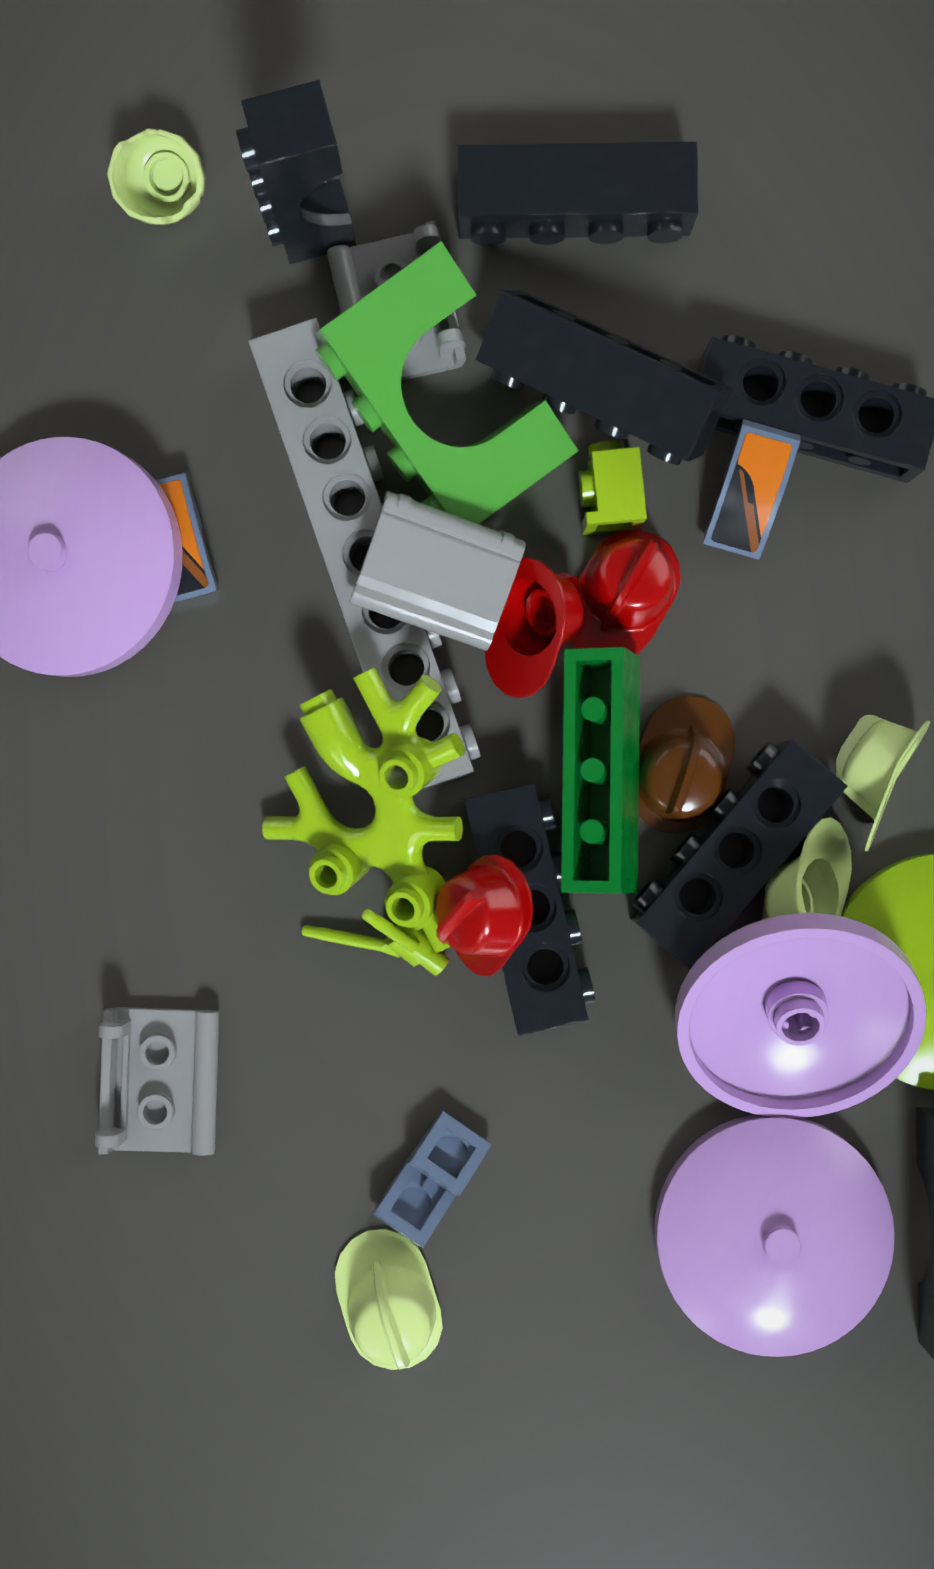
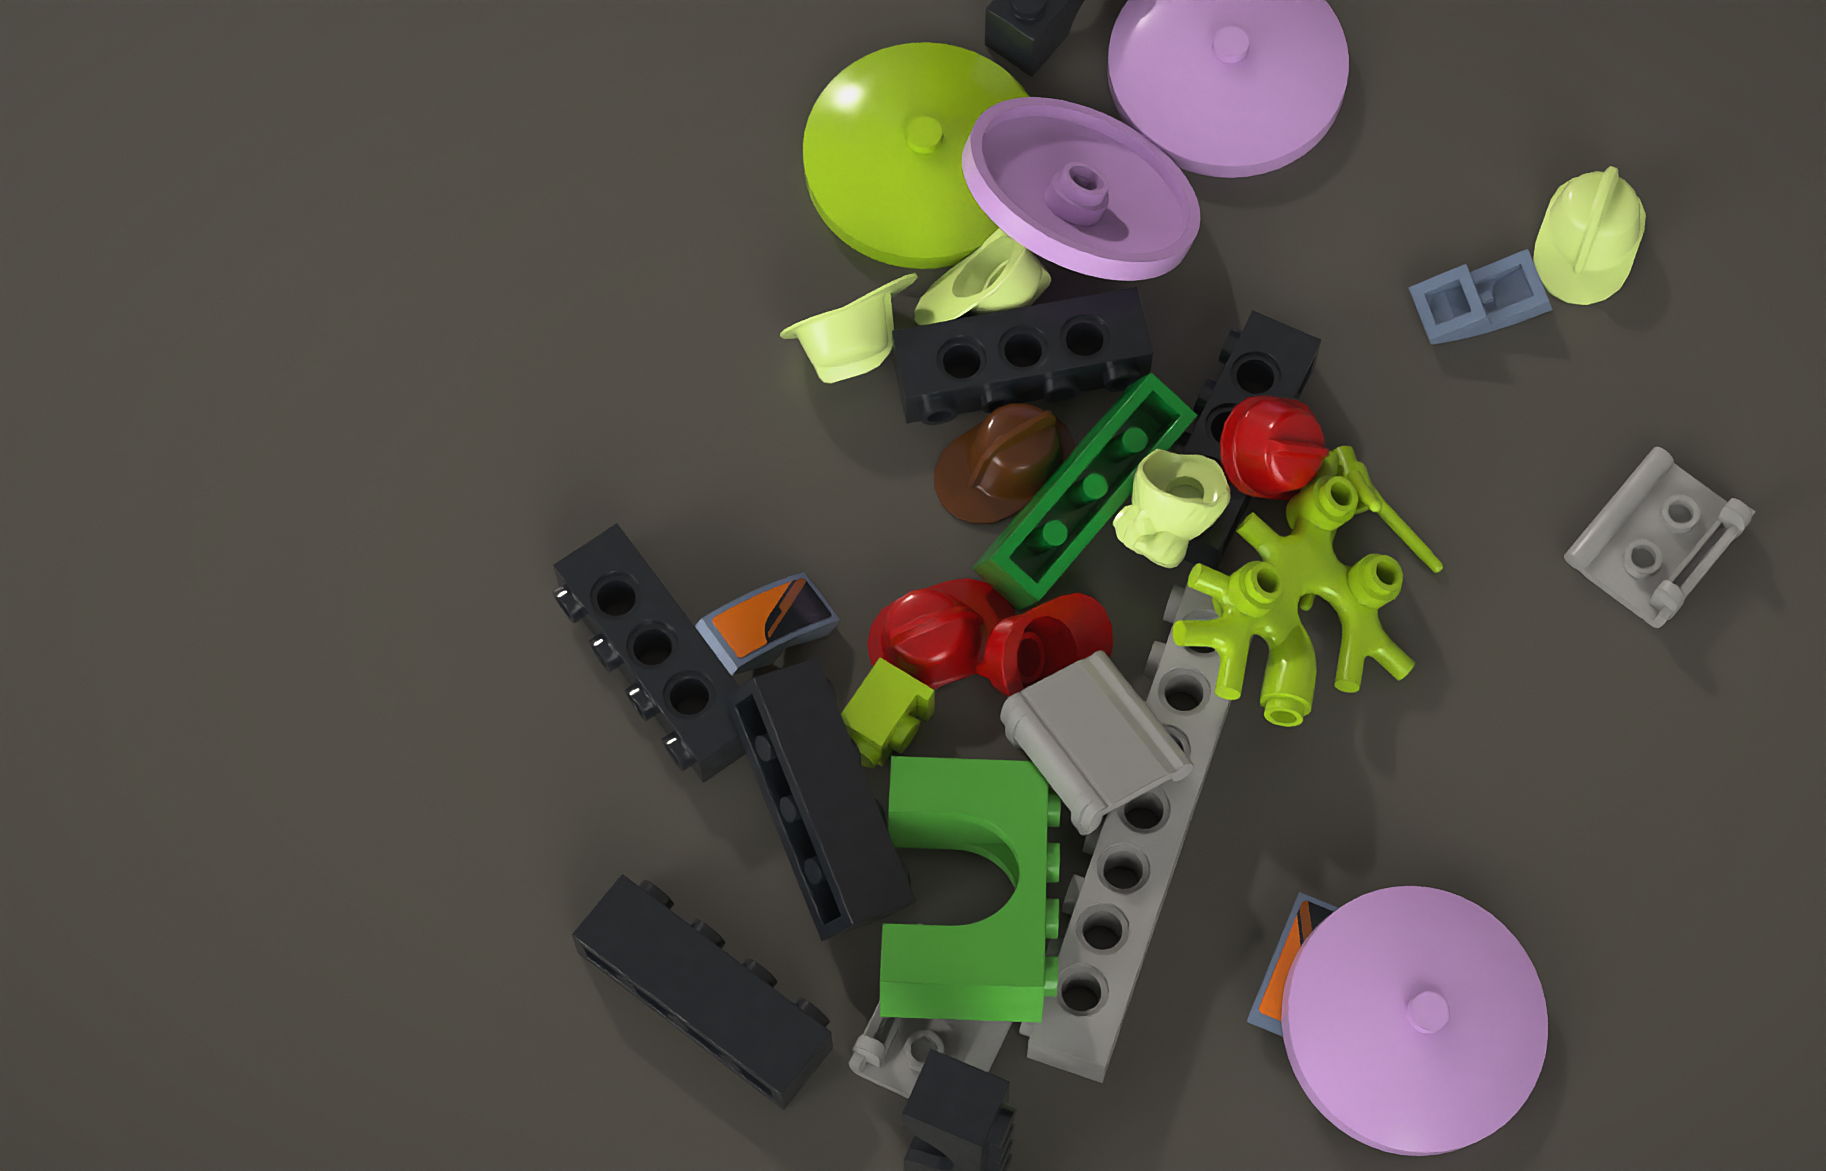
camera: 140 degrees left, 20 degrees down
(520, 799) = (1171, 504): none -> yellowish green hair

